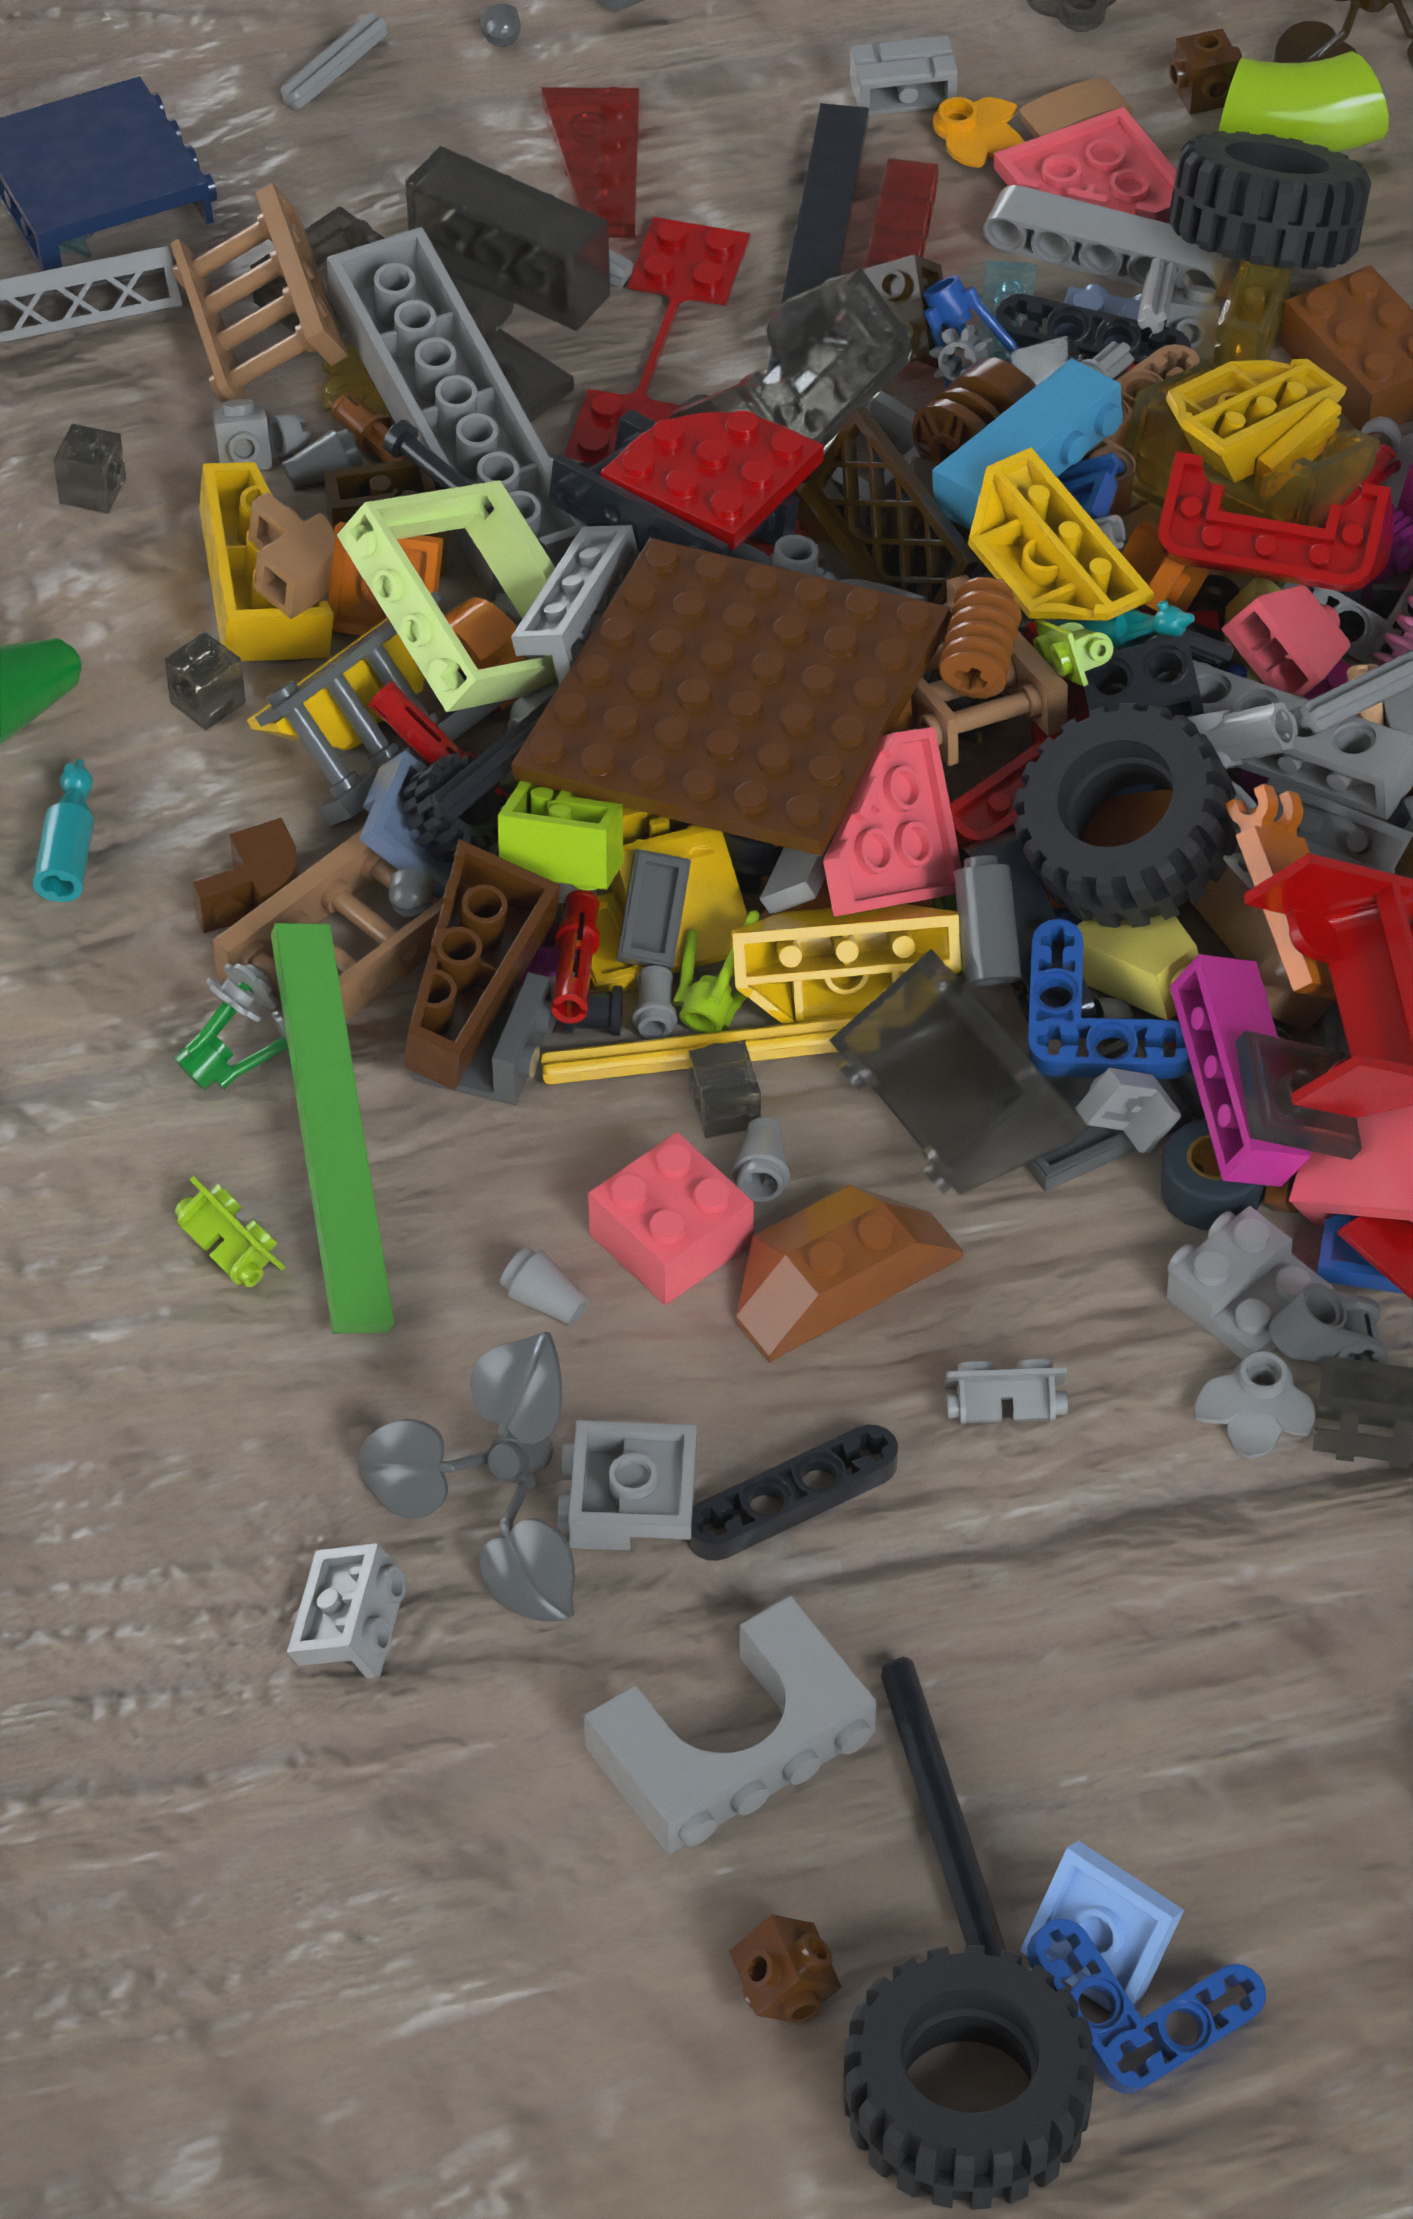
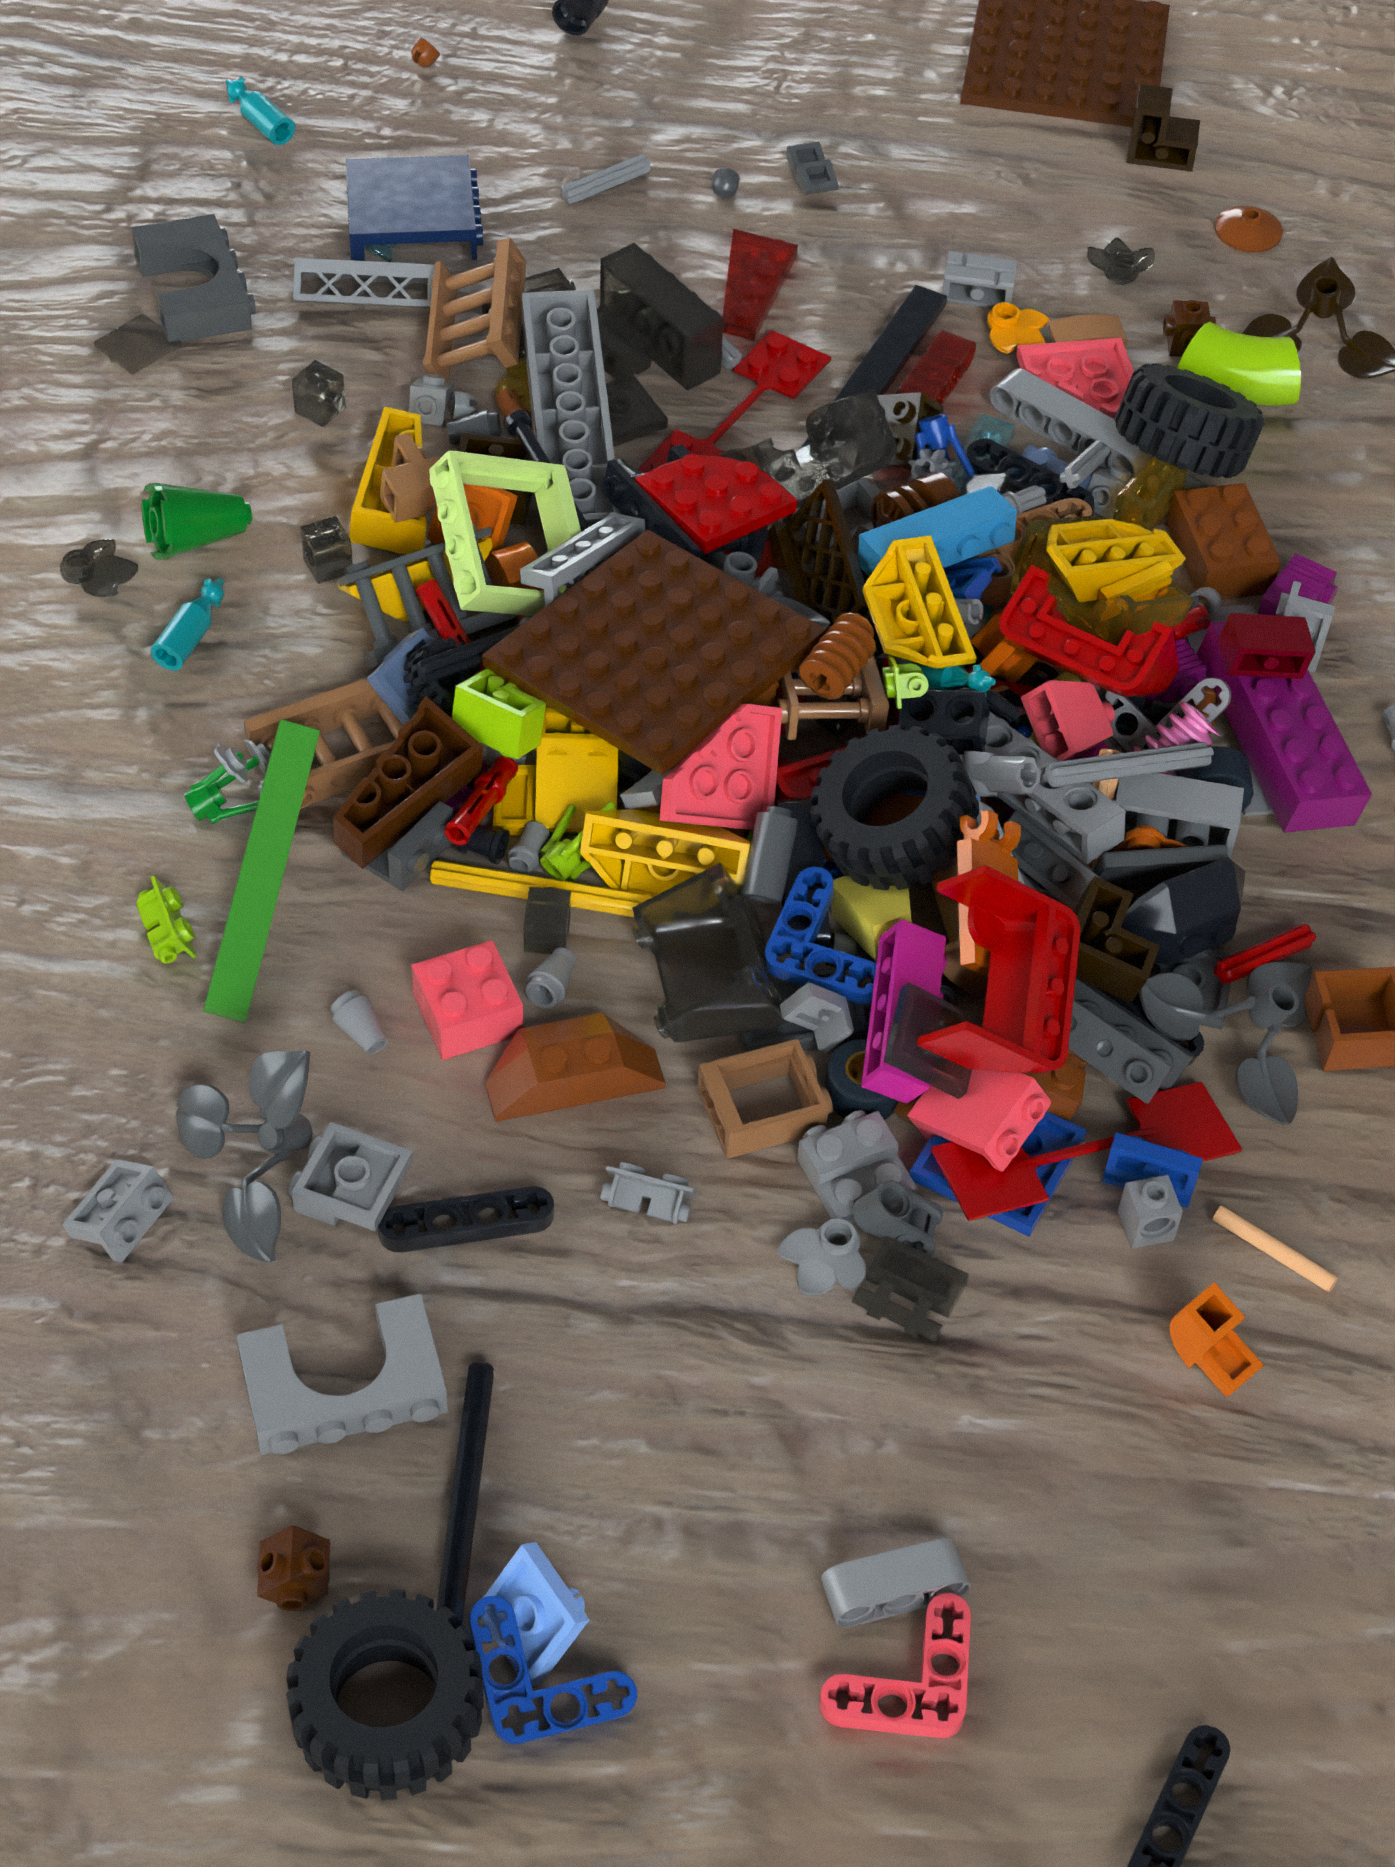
camera: 15 degrees right, 0 degrees up
(262, 865) = (307, 678): reddish brown brick -> none
(411, 892) = (388, 724): dark grey hinge -> none
(653, 909) = (550, 783): dark grey tile -> none
(1059, 1269) = (753, 1067): none -> medium nougat window

